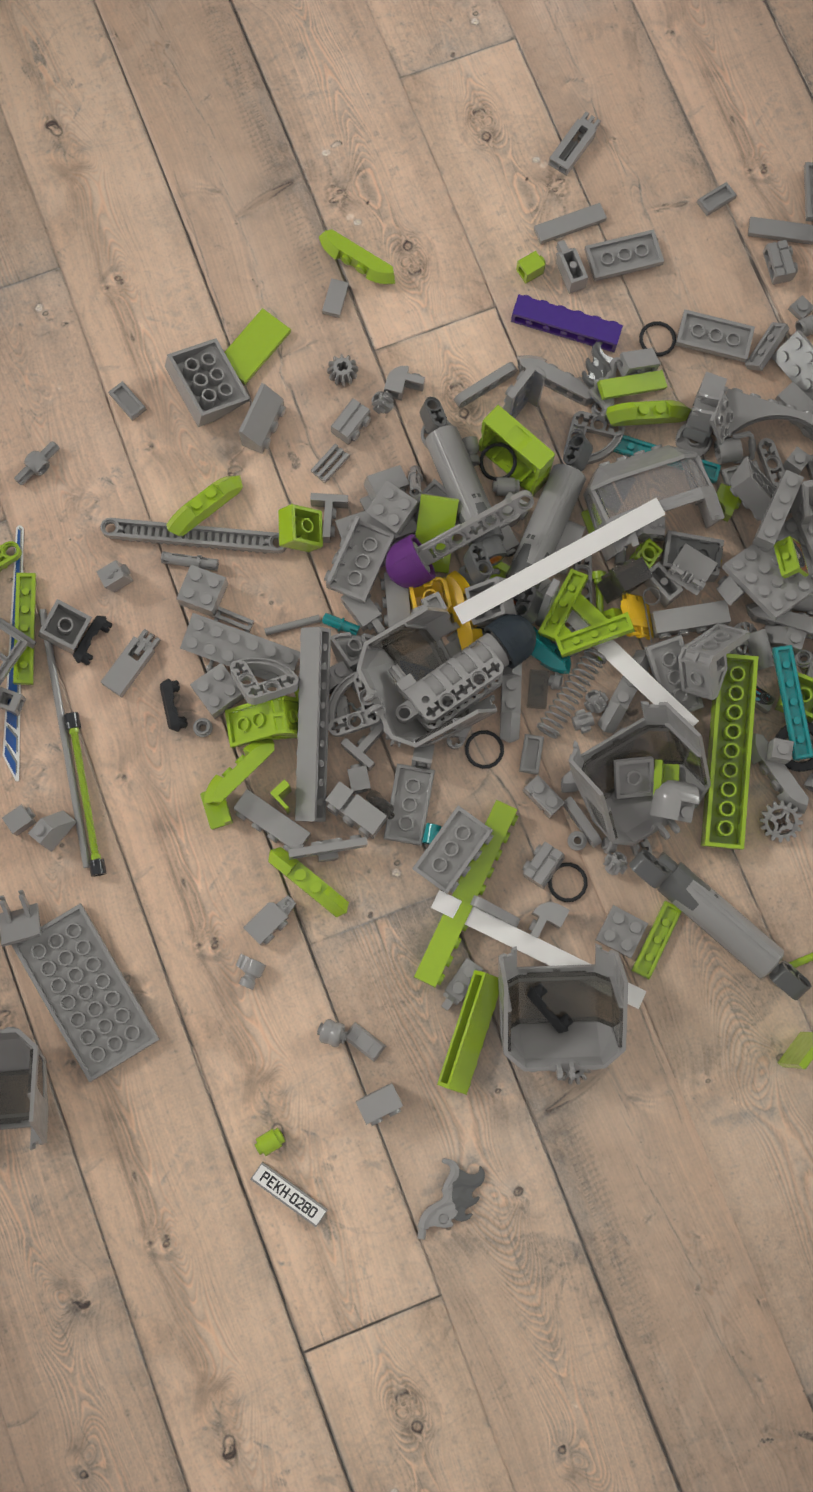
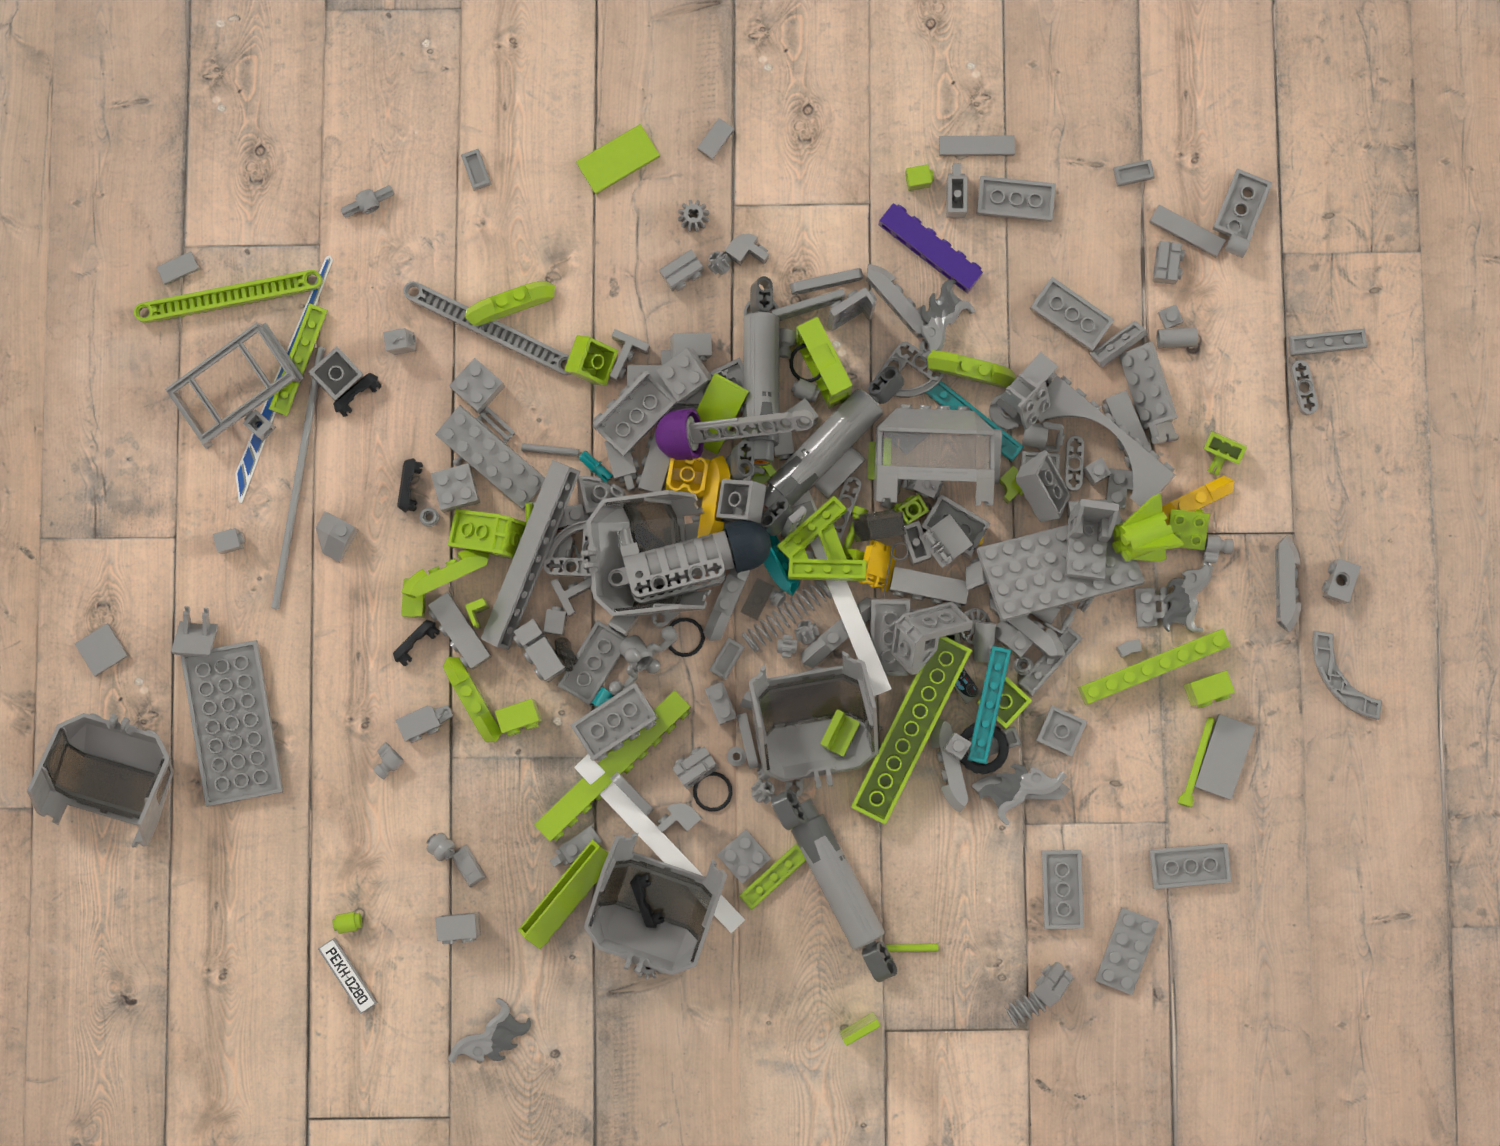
camera: 25 degrees right, 5 degrees up
(52, 829) = (255, 561): light grey slope -> none
(73, 724) = (310, 468): lime hose -> none
(119, 777) = (335, 536): none -> light grey slope
(126, 668) = (379, 434): light grey hinge -> none
(187, 560) = (472, 349): light grey pin -> none
(206, 381) = (558, 179): light grey slope -> none
(224, 864) = (401, 653): none -> black piece
(261, 419) = (596, 238): light grey slope -> none
(285, 683) = (488, 501): light grey beam -> none
(327, 849) = (499, 676): light grey plate -> none
(339, 451) = (643, 297): light grey tile -> none
(356, 256) = (737, 88): lime brick -> none
(360, 880) = (518, 716): none -> lime brick
(415, 481) = (722, 350): light grey pin -> none
(434, 600) = (683, 483): light grey plate -> none
(453, 780) = (641, 657): none -> light grey wheel
(480, 408) = (809, 305): none -> light grey tile
(559, 560) = (816, 489): white sticker -> none
(570, 151) = (1008, 69): light grey hinge -> none
(632, 384) = (967, 335): lime tile -> none
(634, 777) = (810, 718): light grey plate -> none
(638, 362) = (983, 315): light grey hinge -> none
(664, 325) = (1008, 310): black piece -> none
(675, 801) = (838, 756): light grey brick -> none
(777, 510) = (1049, 516): light grey brick -> none
(790, 557) = (1043, 566): lime panel -> none
(792, 826) = (929, 806): light grey gear -> none

